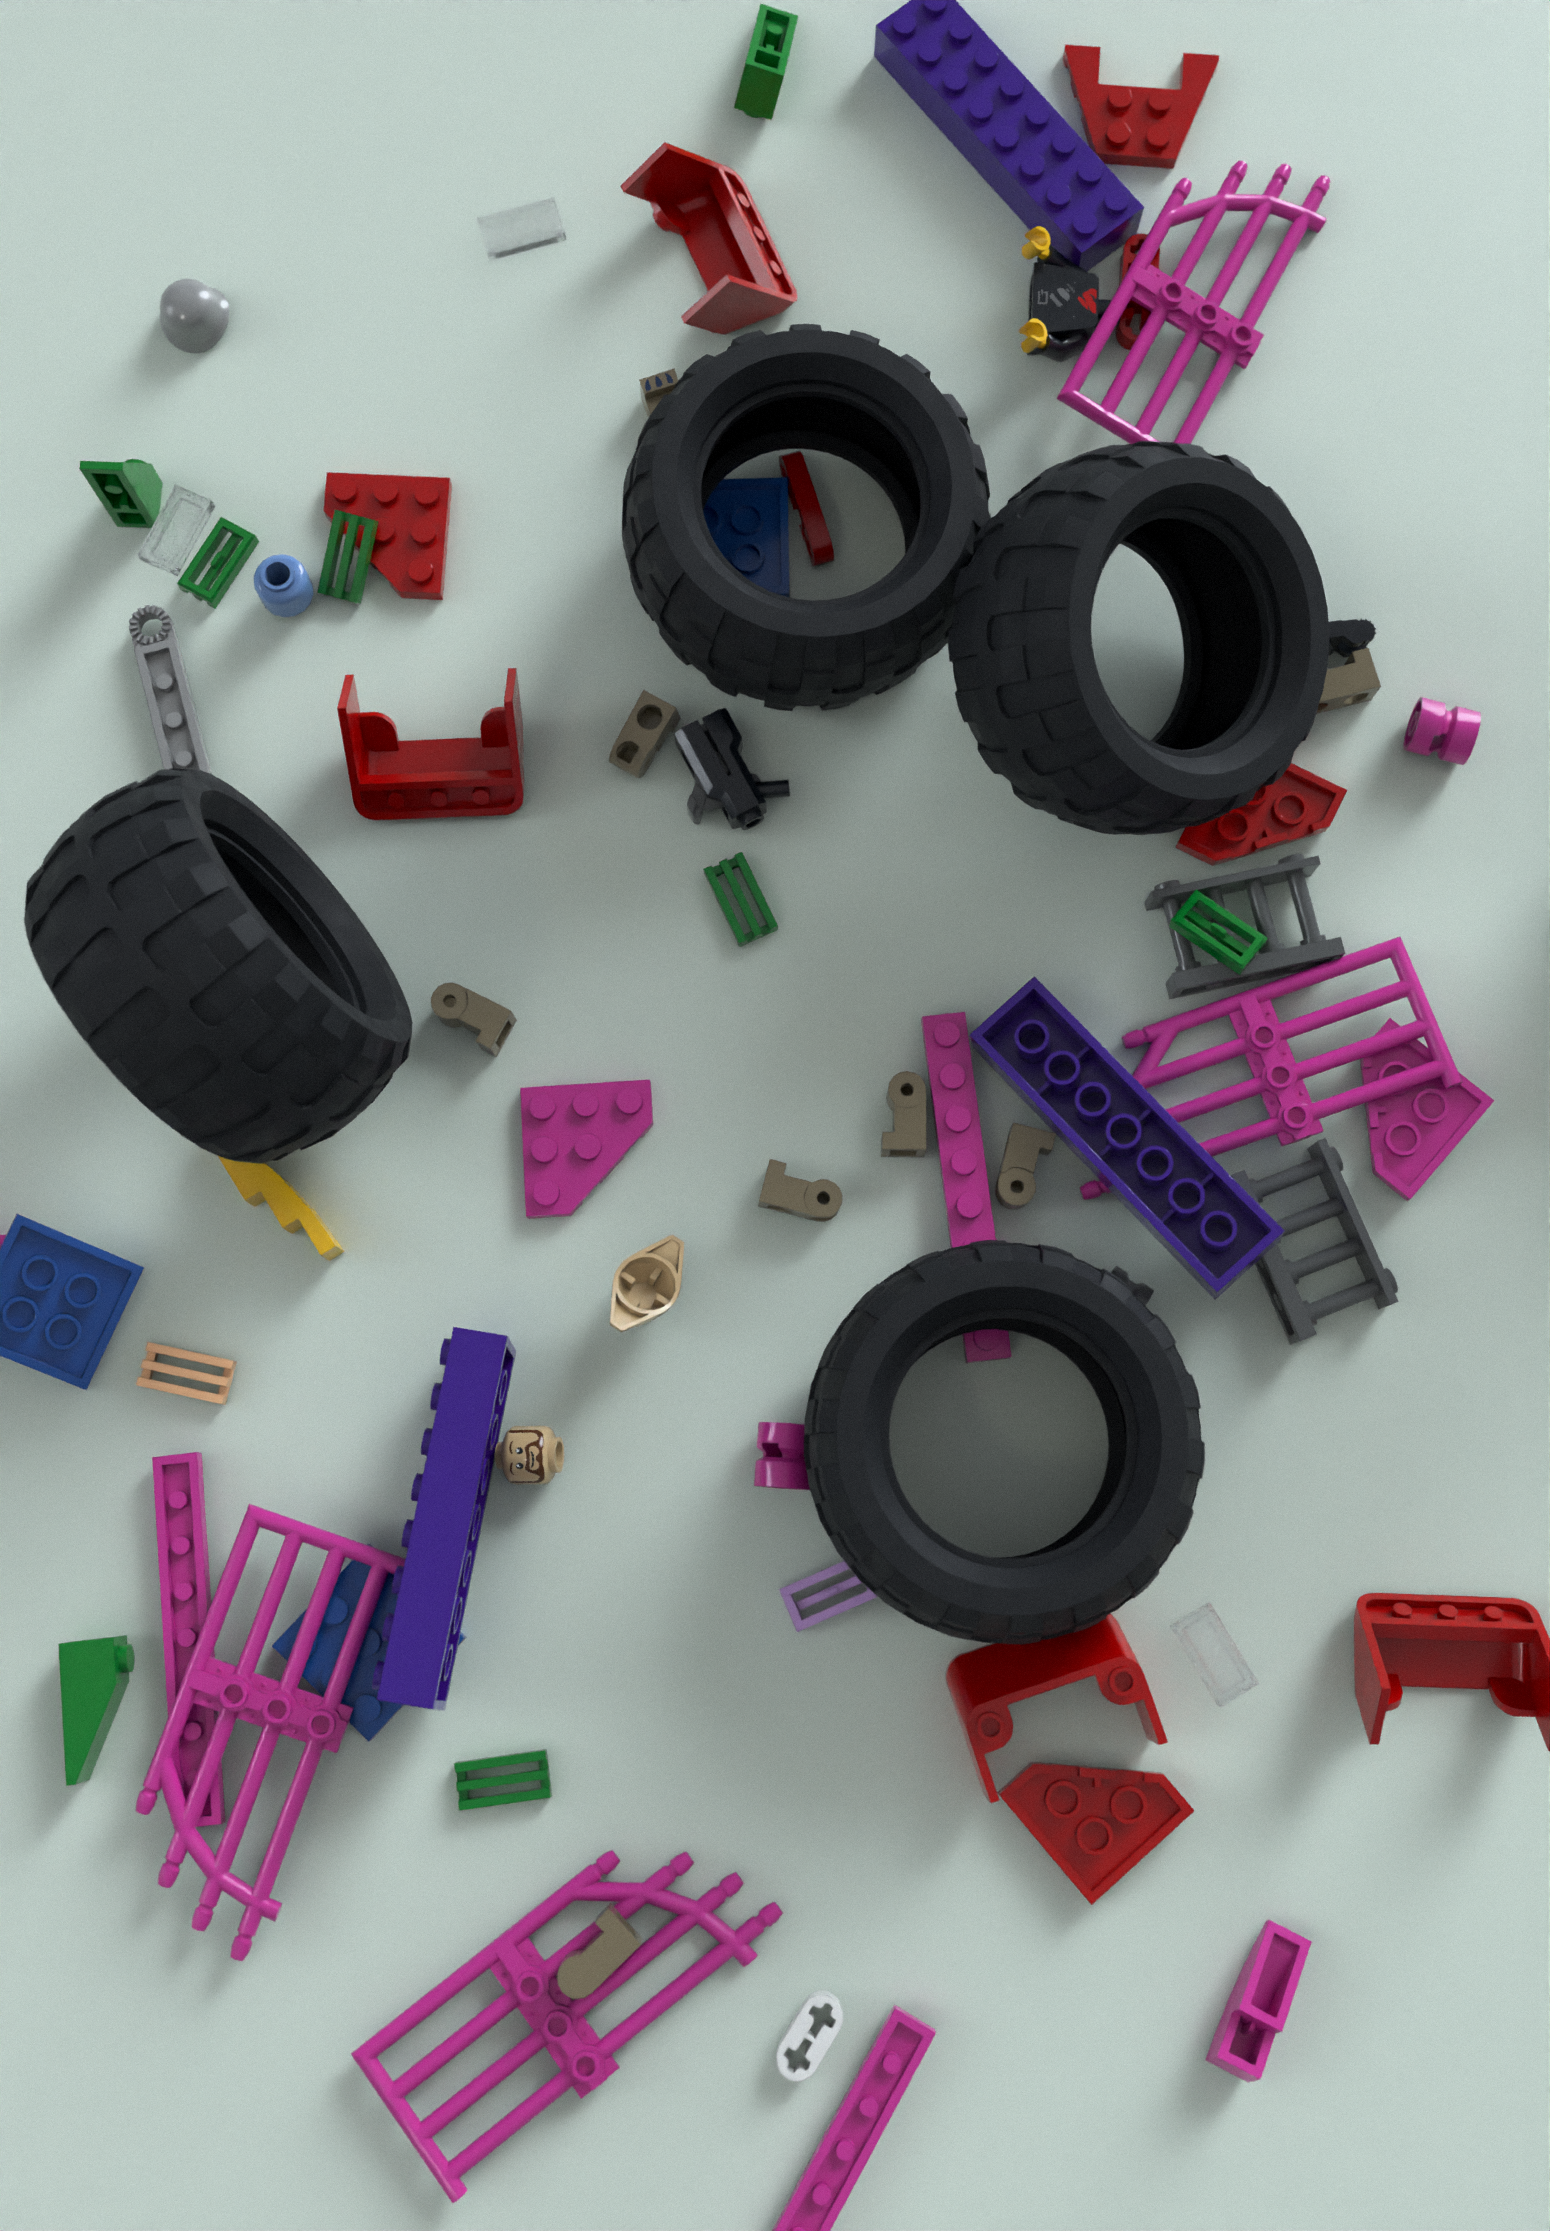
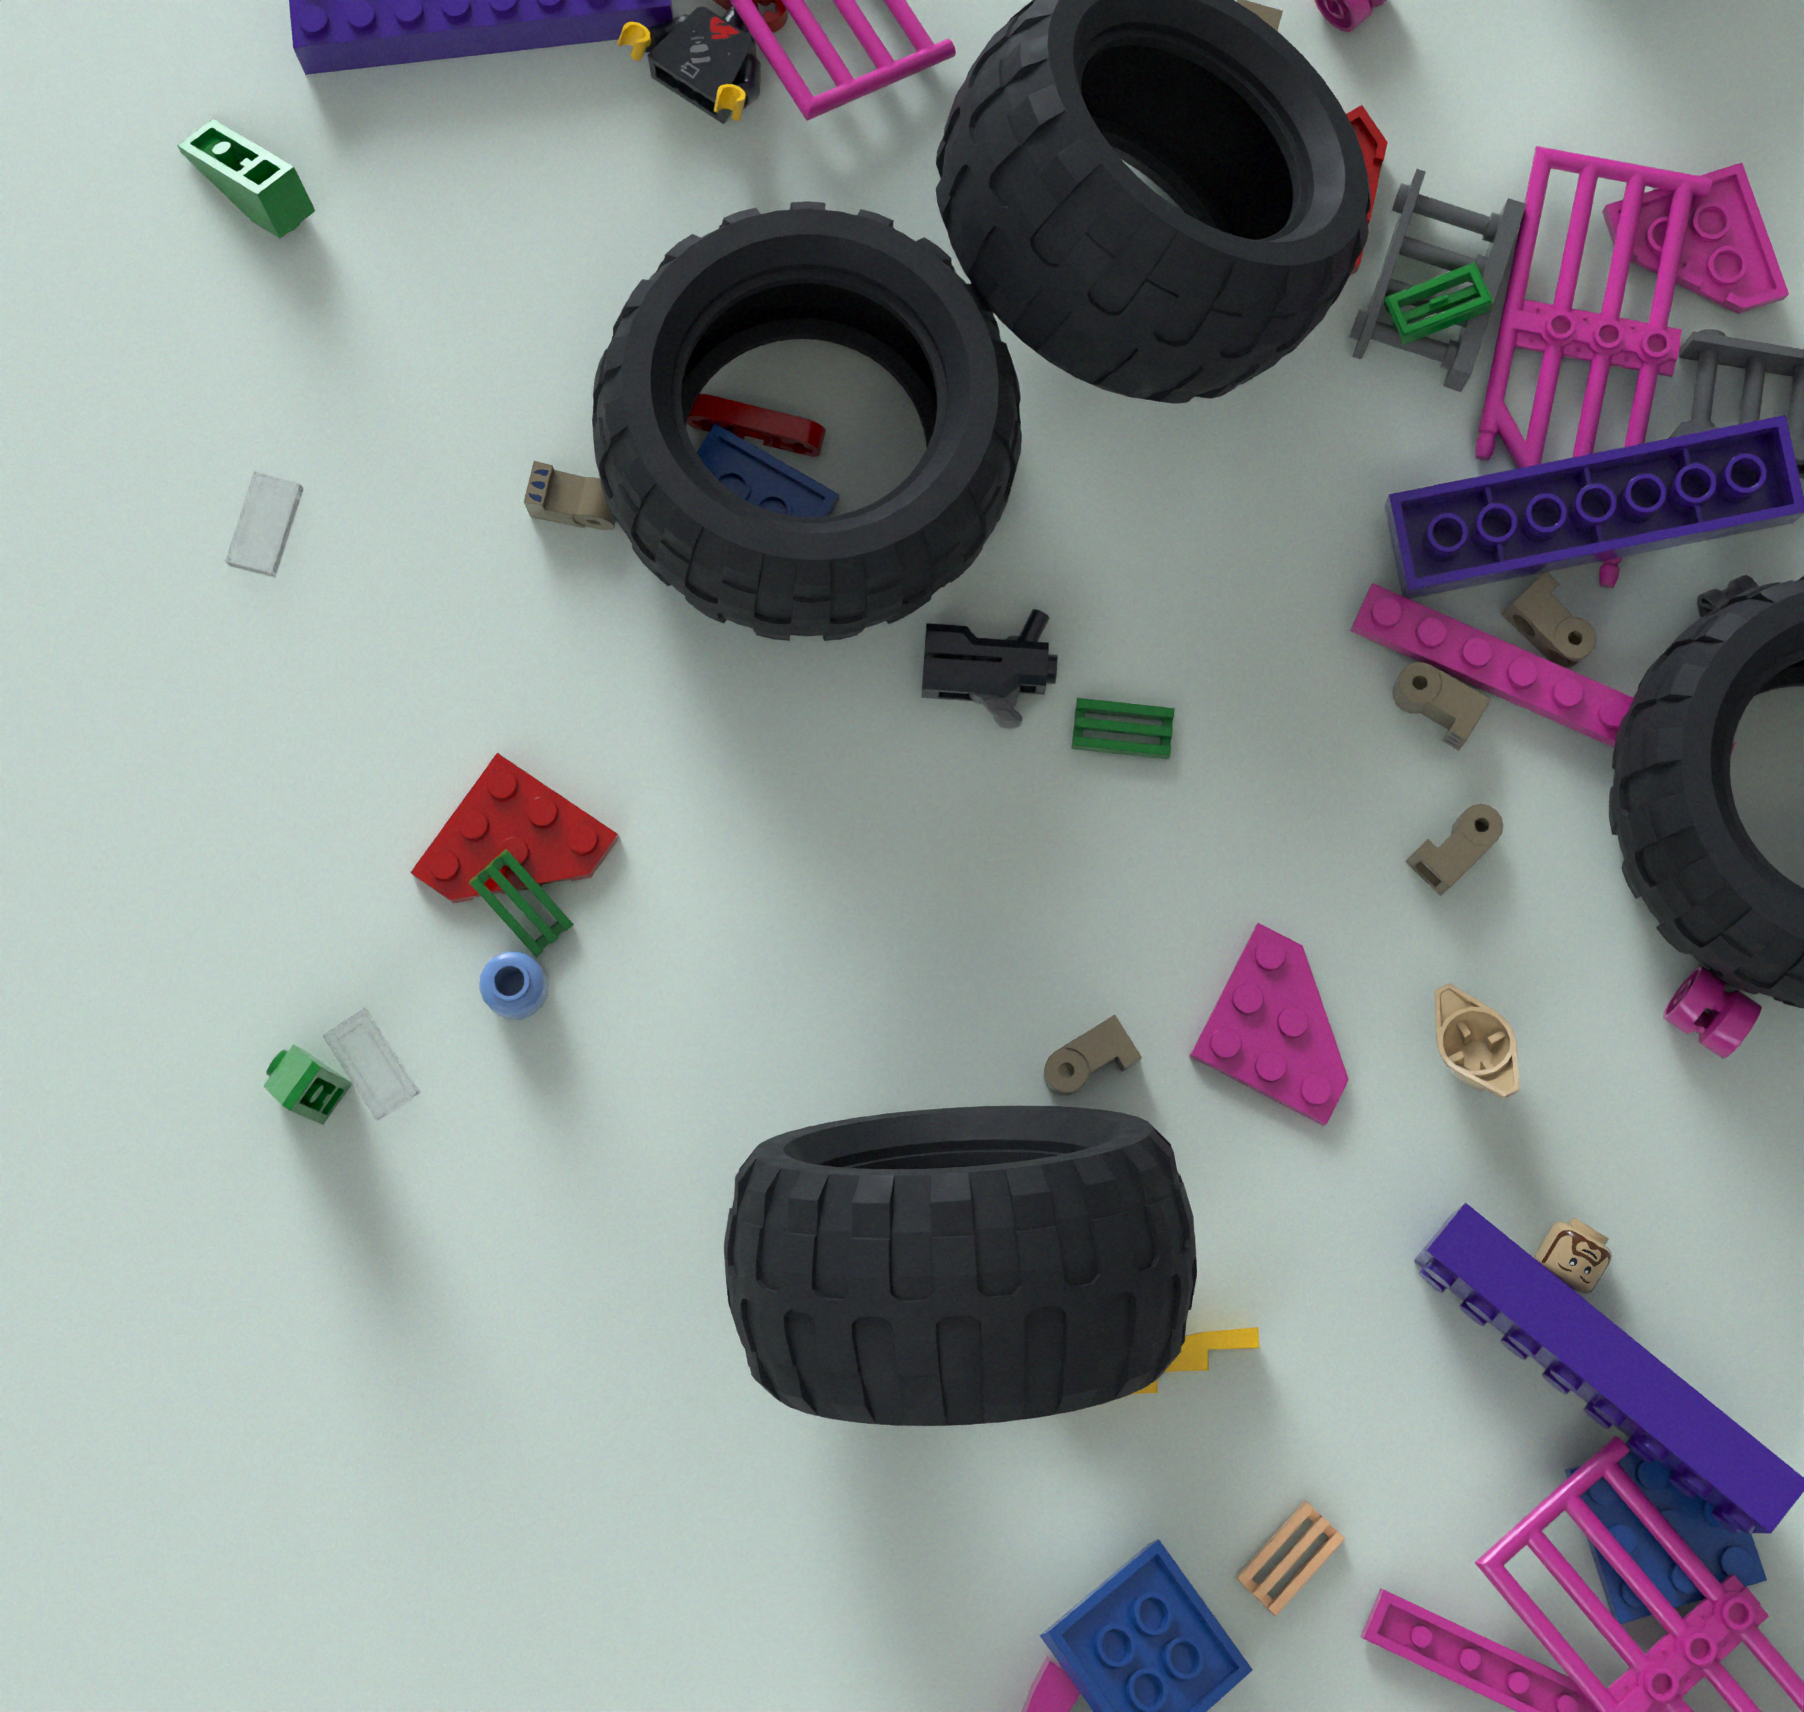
camera: 60 degrees left, 0 degrees up
(168, 693) = (586, 1181): light grey plate -> none
(193, 315) = (141, 910): light grey helmet -> none
(231, 569) = (453, 1078): green tile -> none
(433, 775) = (814, 940): red windscreen -> none
(643, 734) = (899, 720): dark tan leg -> none
(723, 236) = (419, 334): red windscreen -> none

